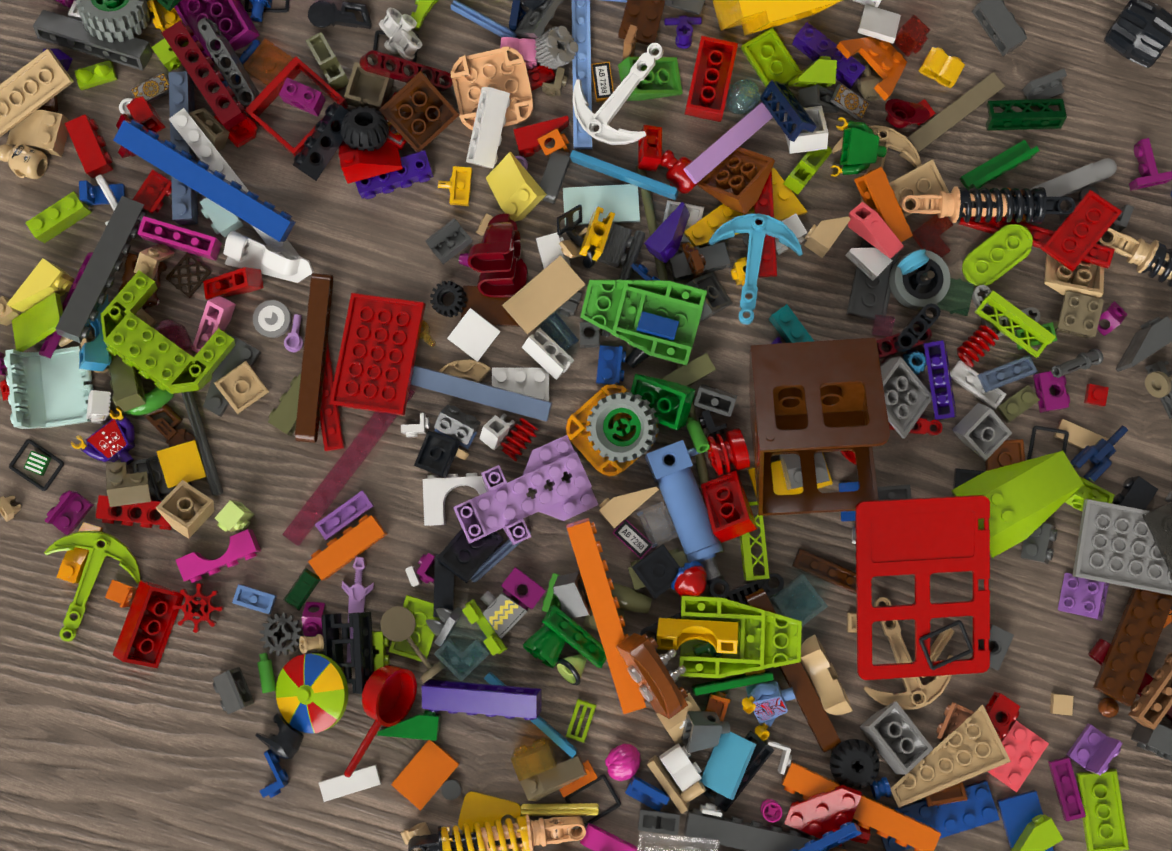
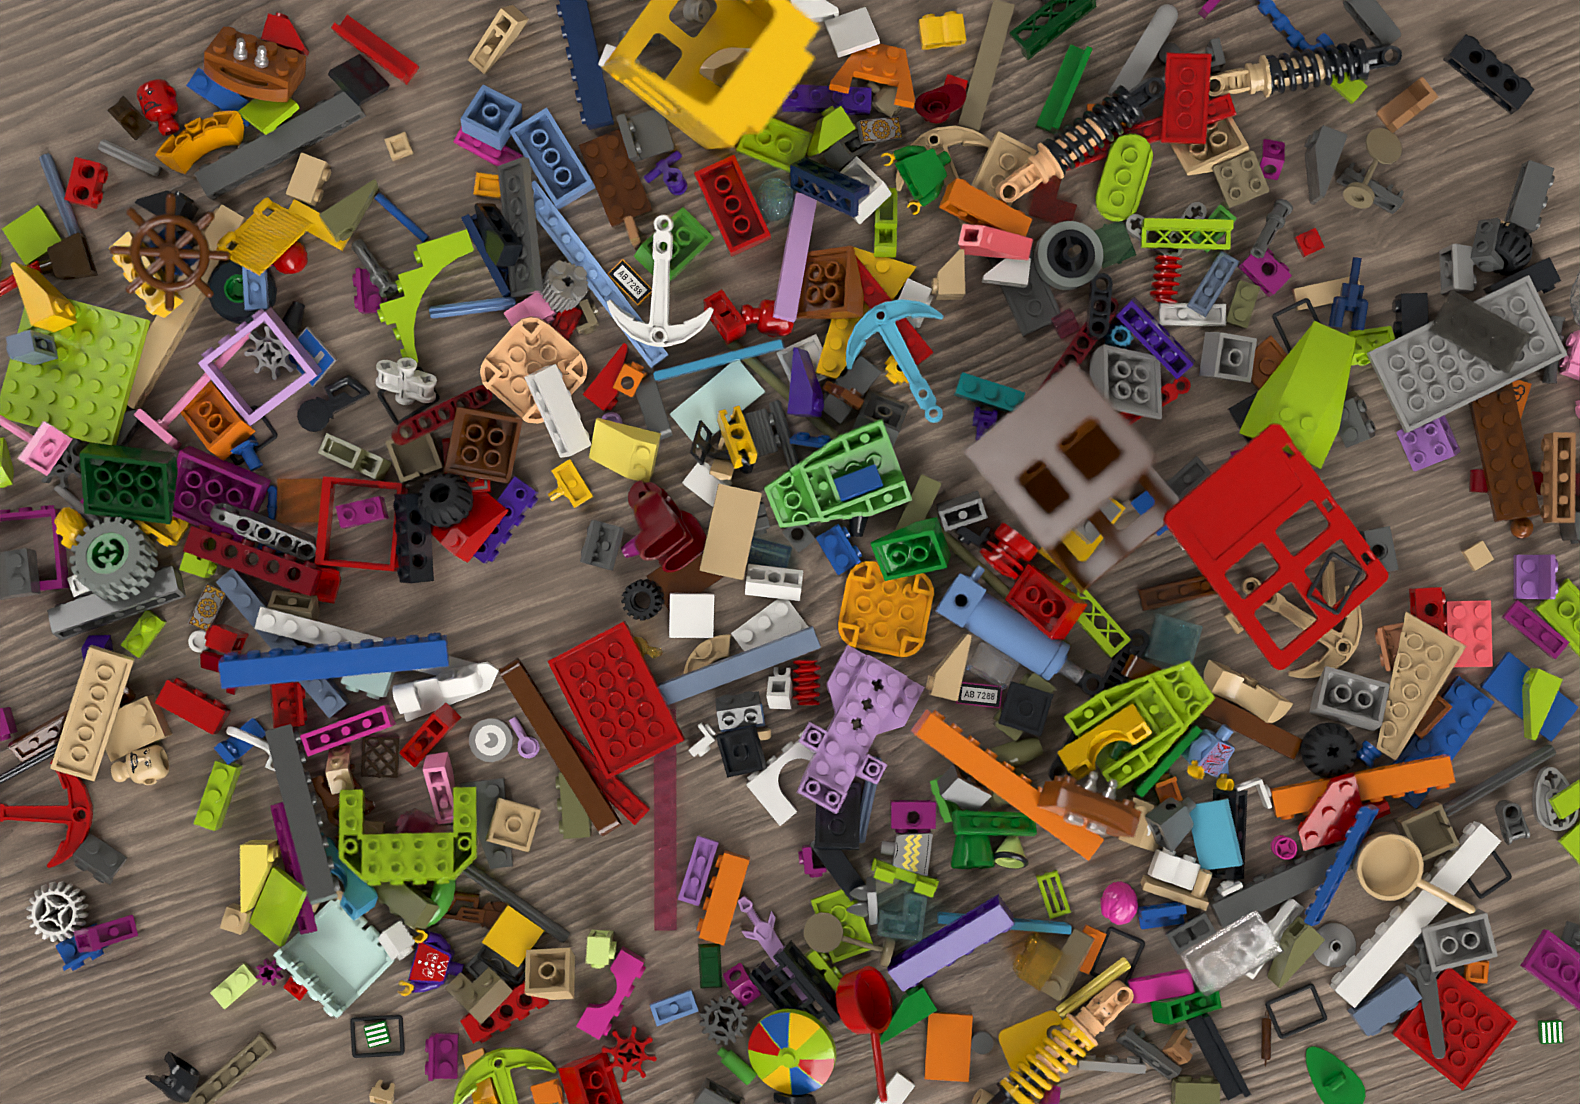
camera: 30 degrees left, 5 degrees up
(311, 643) = (758, 1008): tan bush -> none
(413, 576) = (804, 879): white tile -> none
(484, 224) = (622, 504): tan tile -> none
(605, 435) = (889, 620): light grey wheel -> none
(690, 579) = (1061, 696): red hair -> none
(697, 435) = (969, 557): bright green cylinder -> none
(912, 36) = (893, 23): clear red brick -> none
(913, 261) = (1051, 247): medium azure piece -> none

